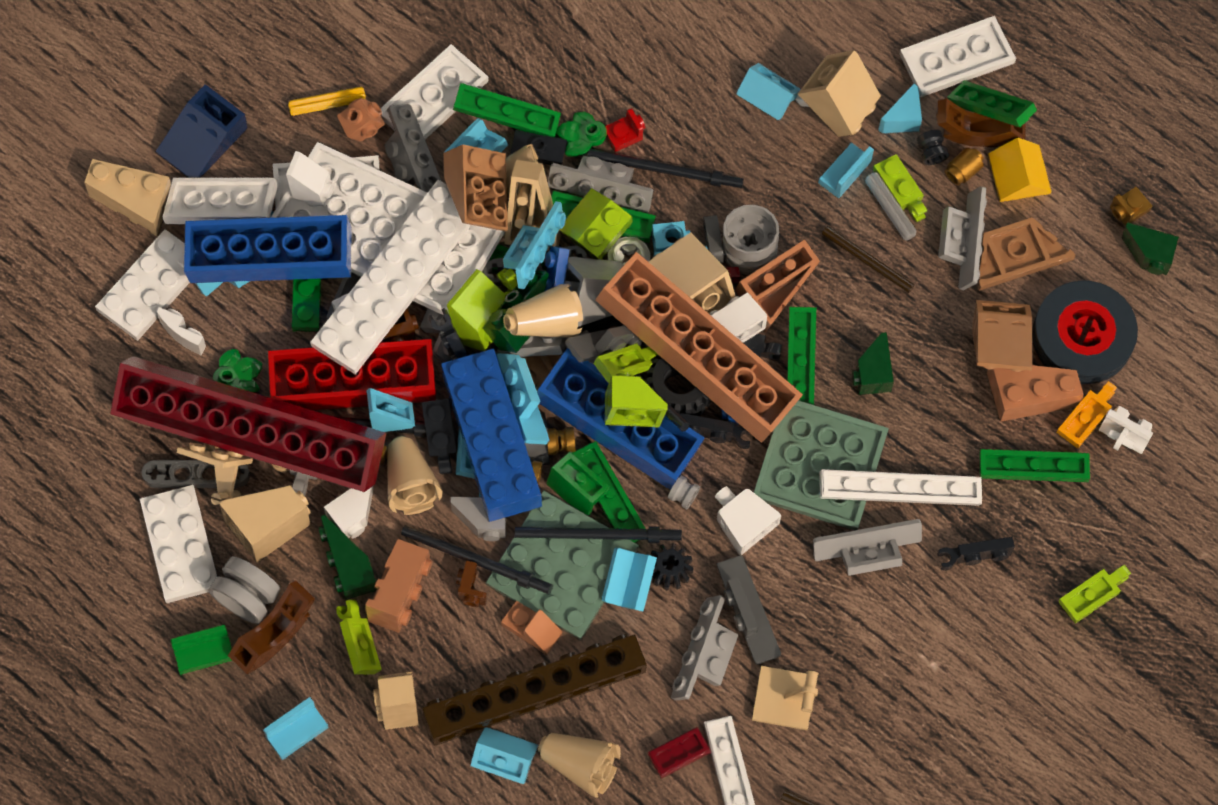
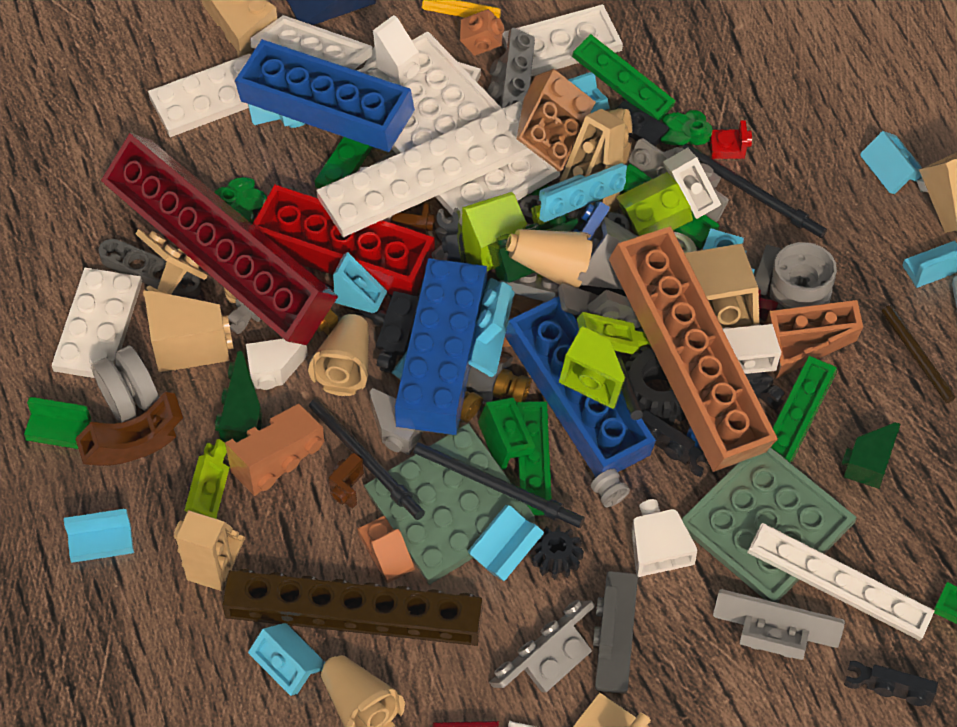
camera: 30 degrees right, 10 degrees down
(176, 327) = (211, 143): white slope -> none
(618, 189) = (692, 180): none -> white slope

